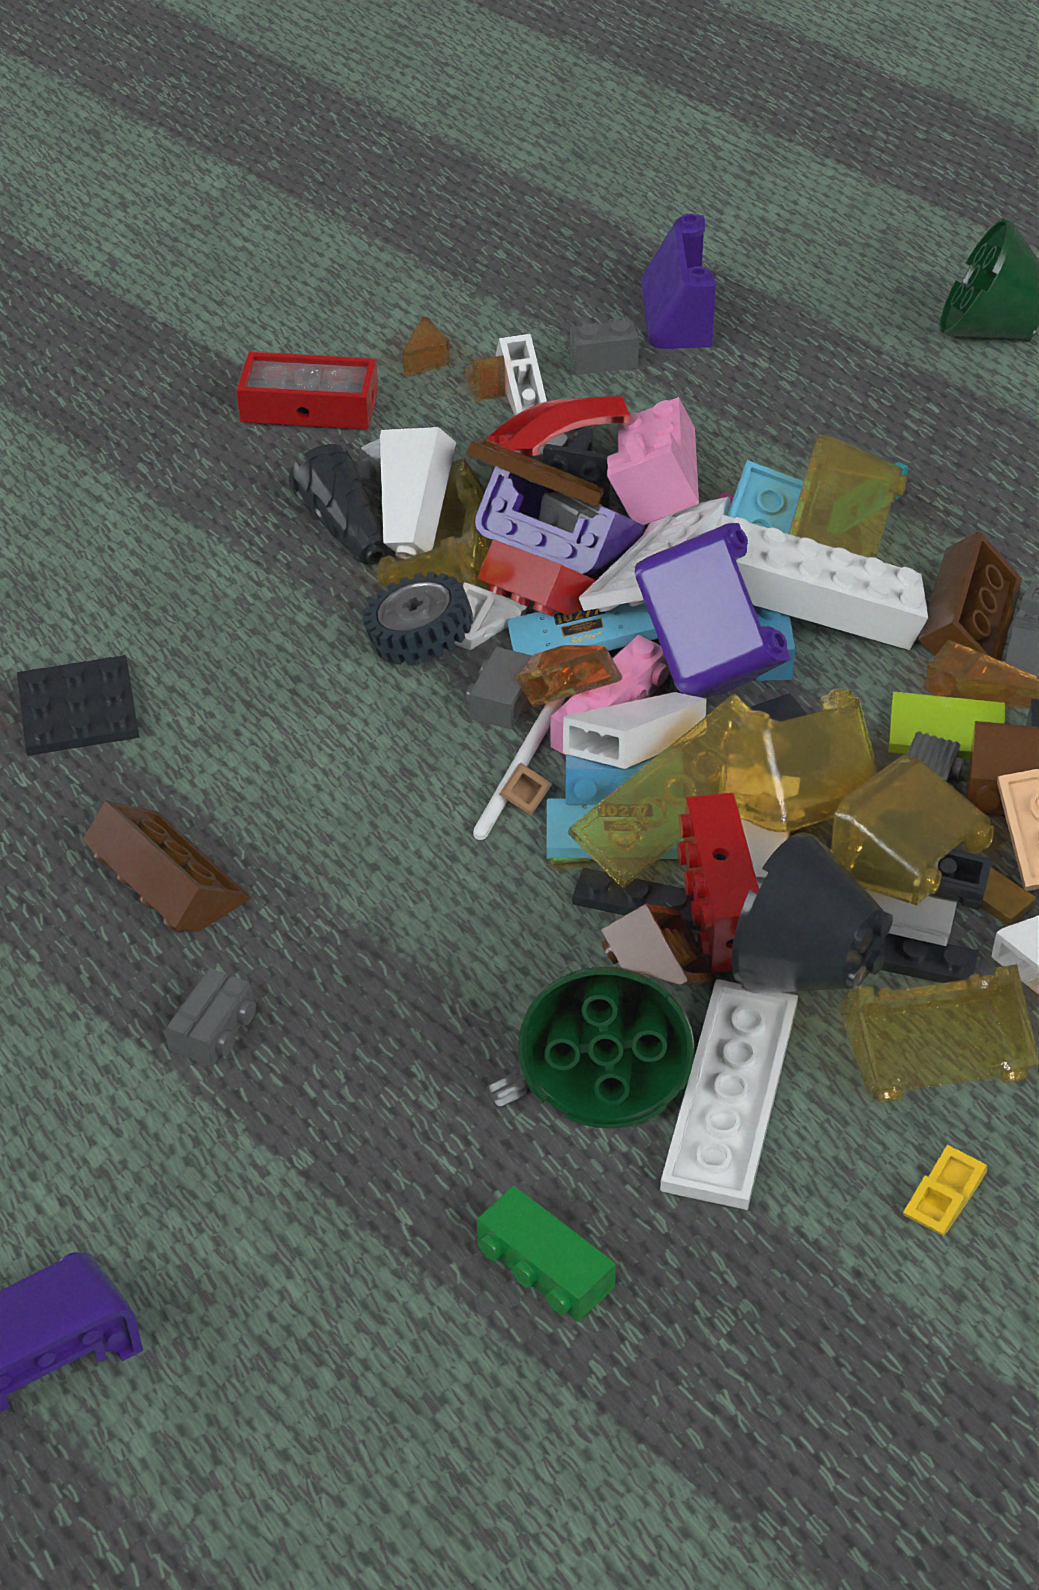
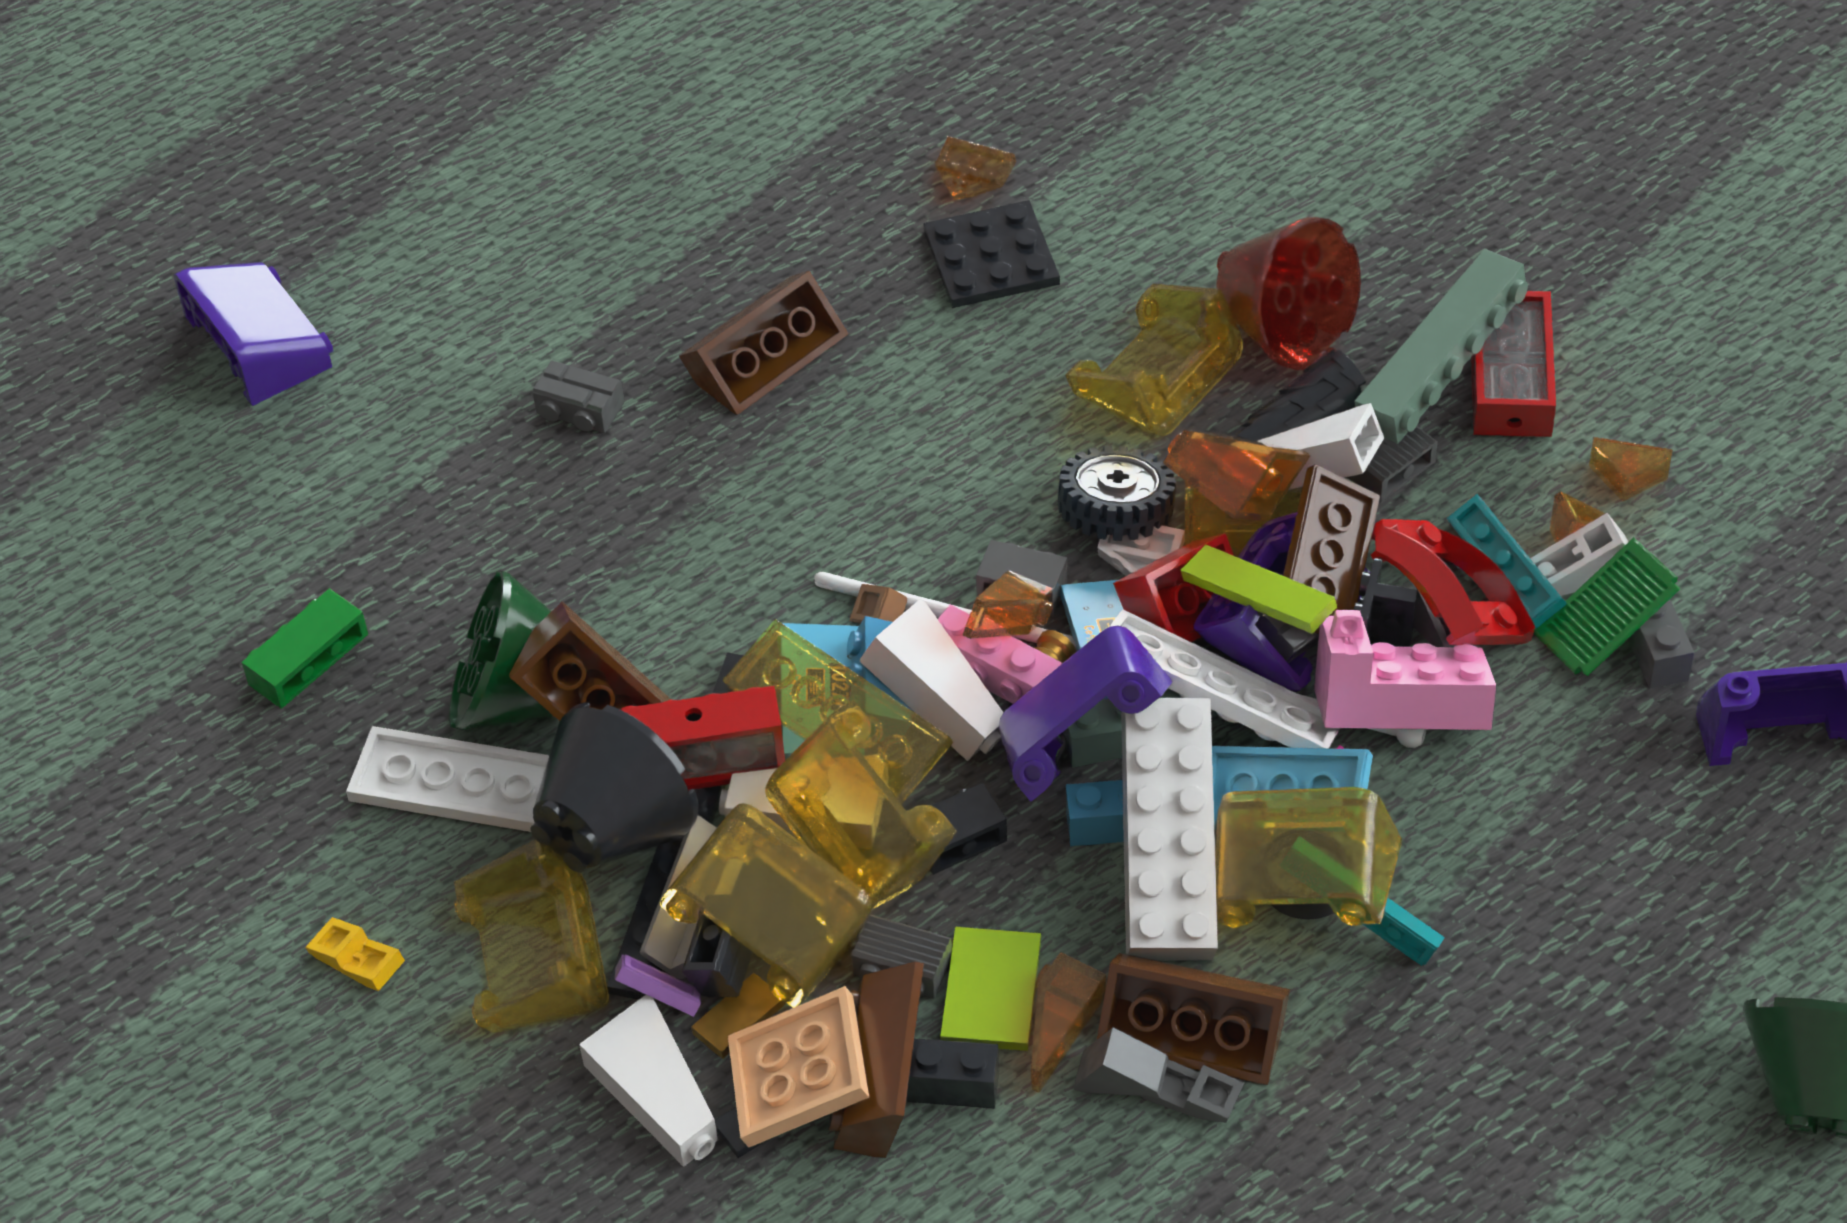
camera: 90 degrees right, 5 degrees up
(211, 491) = (1293, 289): none -> clear red cone
(251, 589) = (1170, 364): none -> clear yellow windscreen
(304, 400) = (1444, 343): none -> sand green brick
(444, 504) = (1236, 473): none -> clear orange slope
(484, 421) = (1483, 530): none -> teal tile
(581, 354) = (1608, 608): none -> green window
(581, 502) = (1260, 588): none -> lime tile
(982, 929) = (657, 984): none -> medium lavender tile

